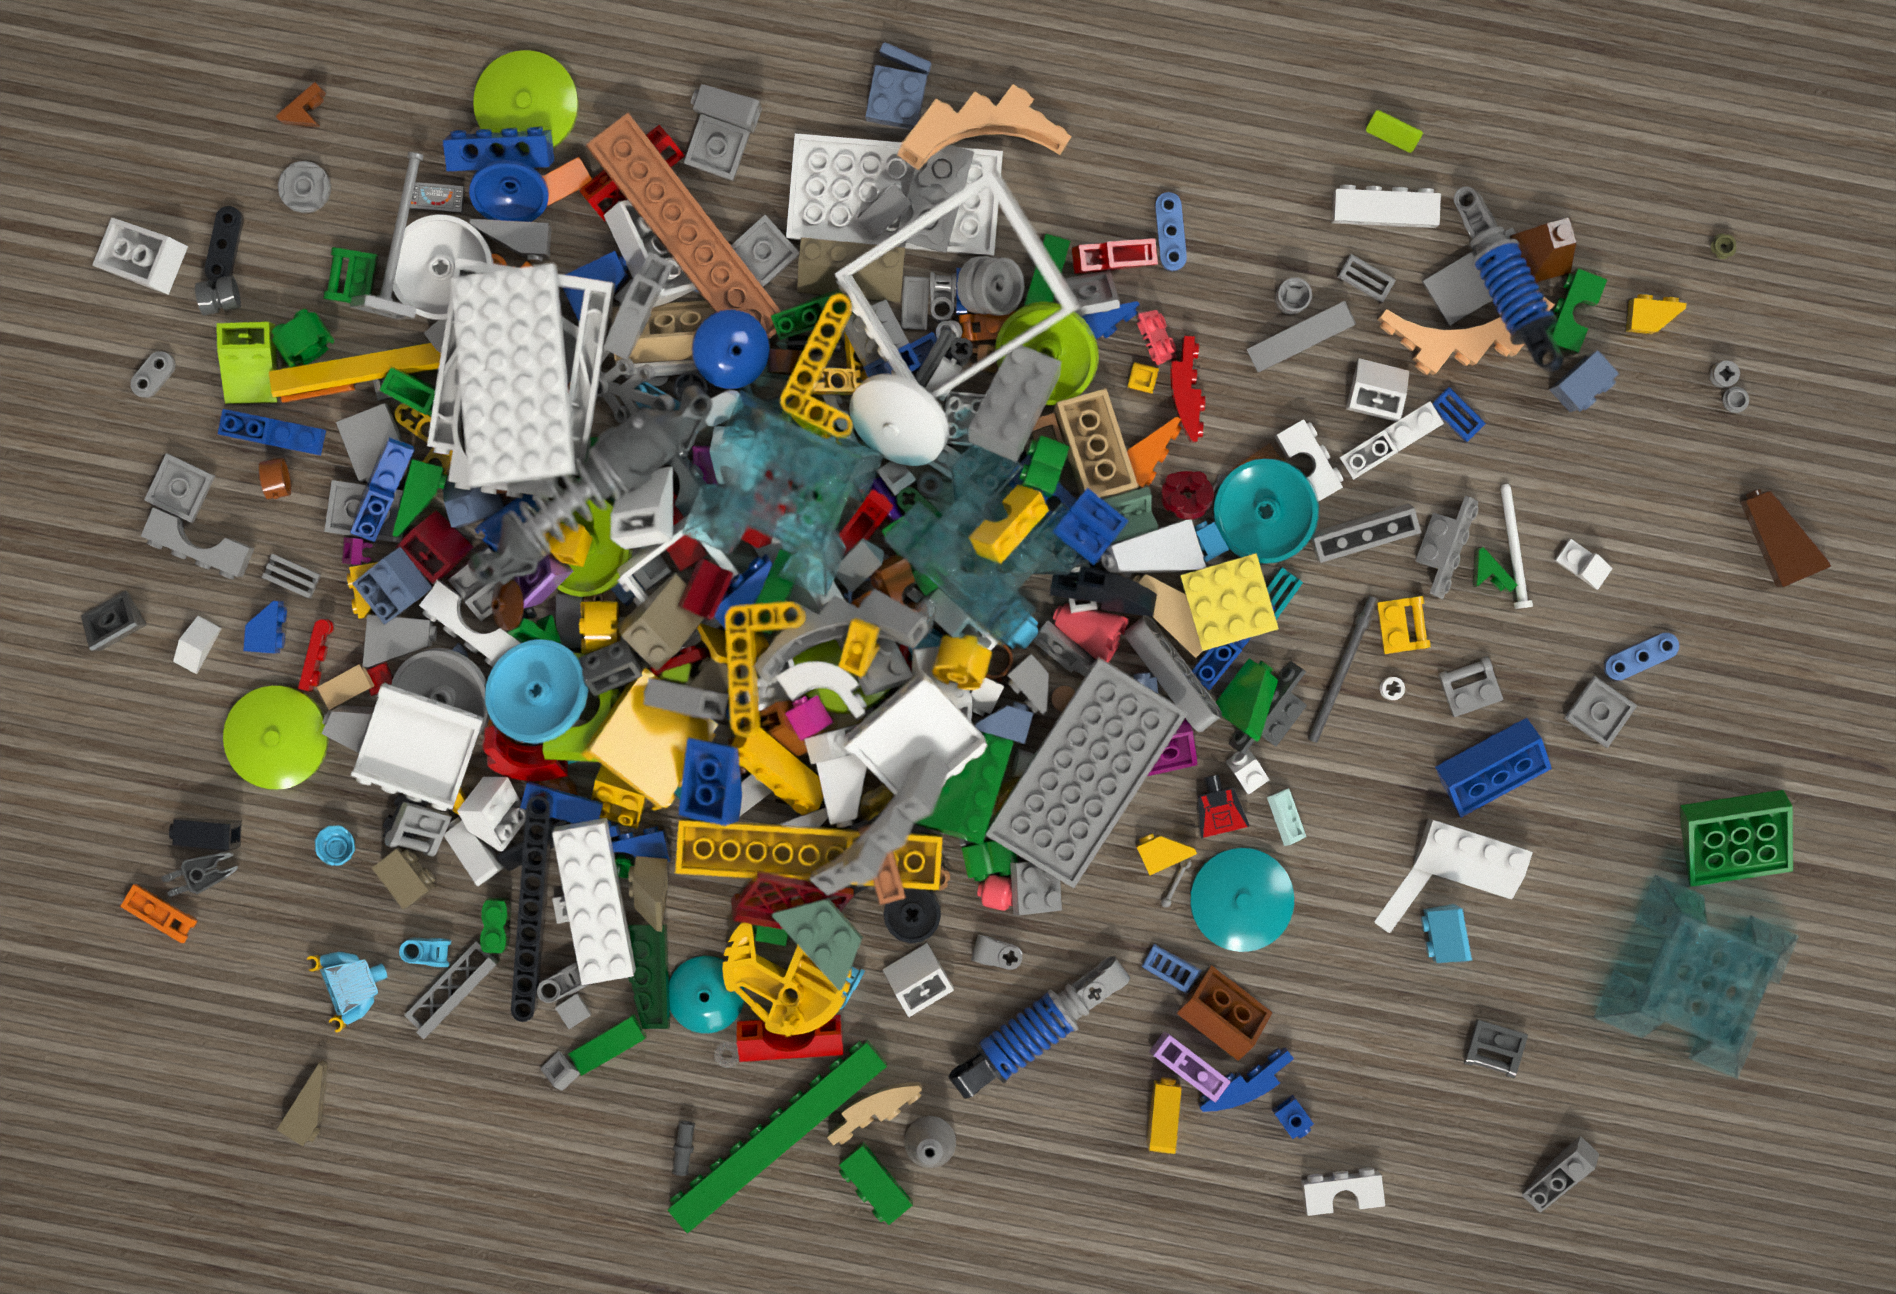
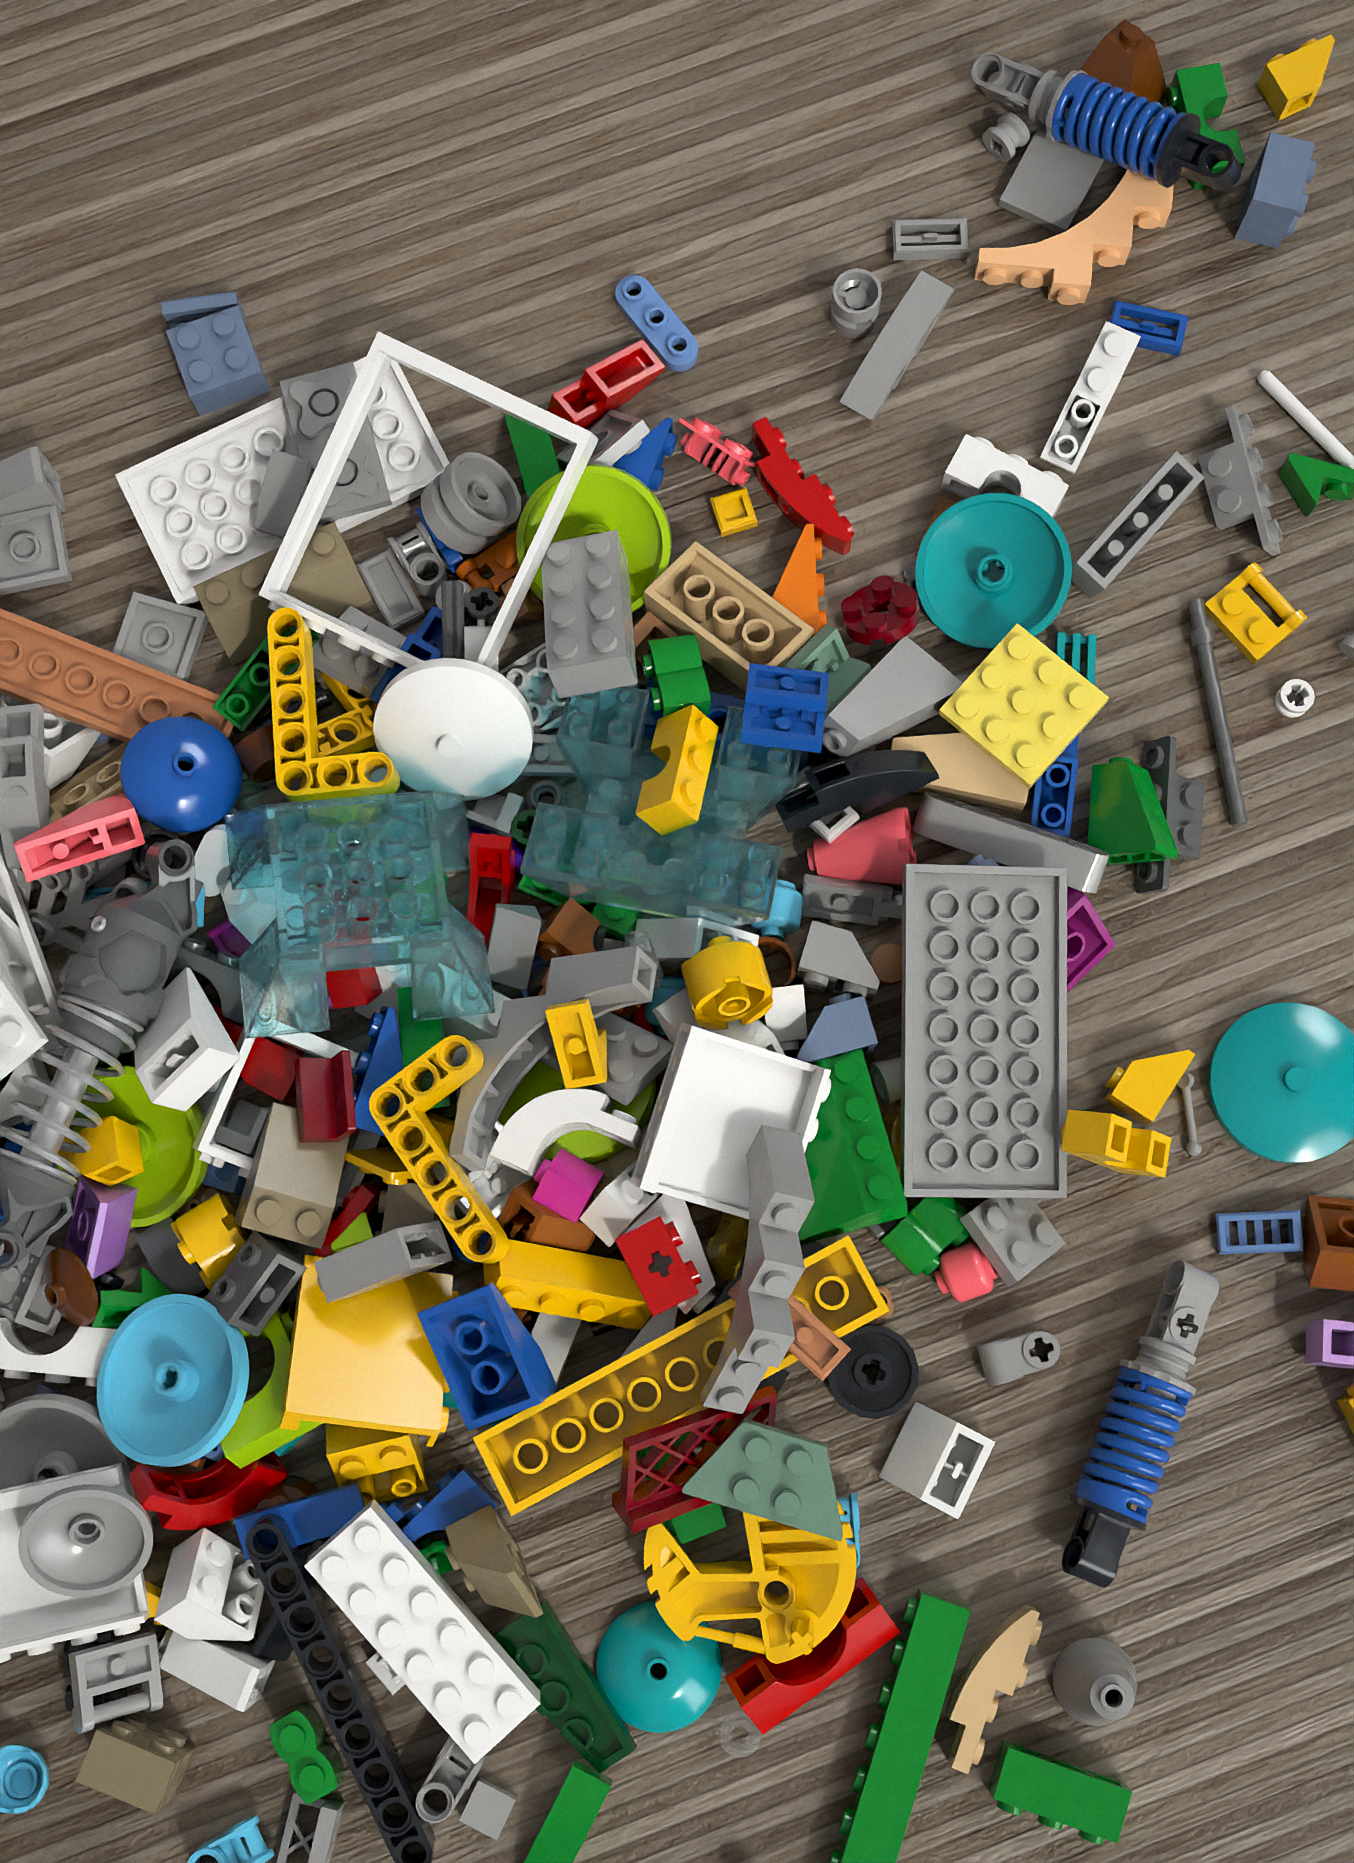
camera: 20 degrees left, 10 degrees down
(446, 750) = (85, 1557): none -> light grey dish
(655, 357) = (80, 838): none -> coral slope
(822, 804) = (658, 1291): none -> red brick
(978, 116) = (332, 318): light nougat arch -> none
(1119, 876) = (1114, 1144): none -> yellow arch
(1210, 540) = (949, 649): dark azure brick -> none
(1219, 809) = (1182, 982): torso -> none
(1247, 771) = (1185, 910): white bracket -> none
(1286, 817) = (1275, 938): light aqua plate -> none
(1378, 390) = (1035, 354): white slope -> none
(1386, 207) = (899, 142): white brick -> none
(1394, 131) = (850, 54): lime slope -> none
(1452, 244) = (1006, 136): none -> light grey wheel

